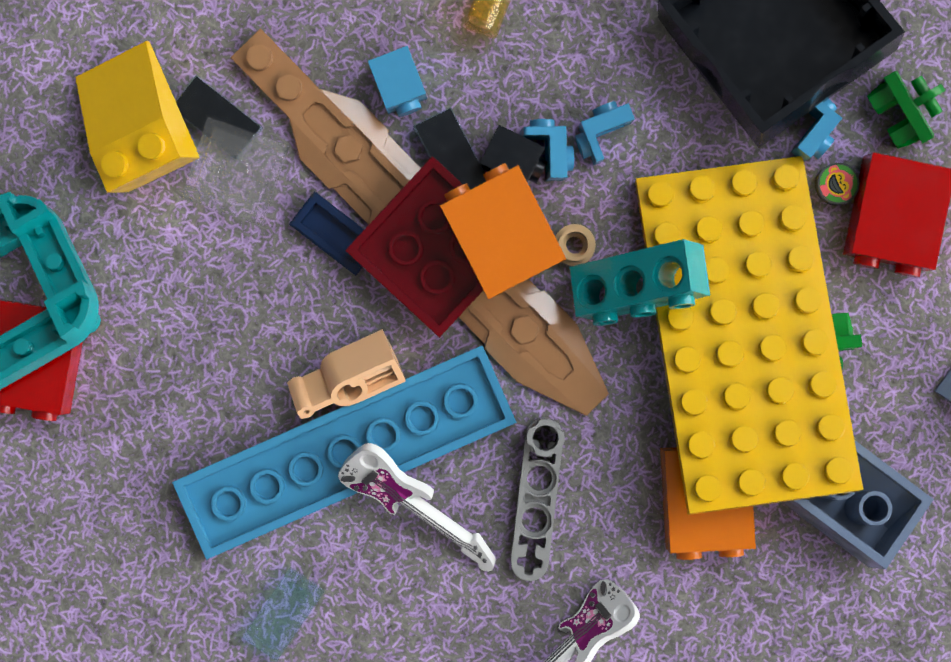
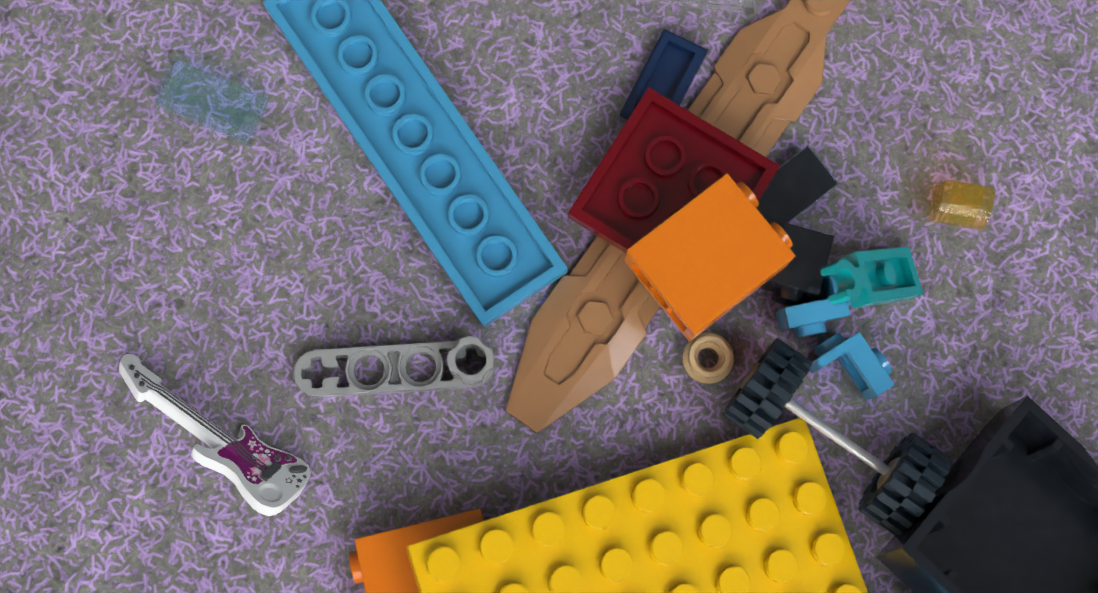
camera: 80 degrees right, 10 degrees down
(348, 376) = (503, 123): light nougat piece -> none
(376, 475) = (390, 167): white piece -> none
(398, 82) = (855, 117): dark azure brick -> none
(539, 98) = (874, 277): none -> teal plate
(620, 276) = (684, 437): teal brick -> none
(704, 113) = (902, 481): none -> black axle

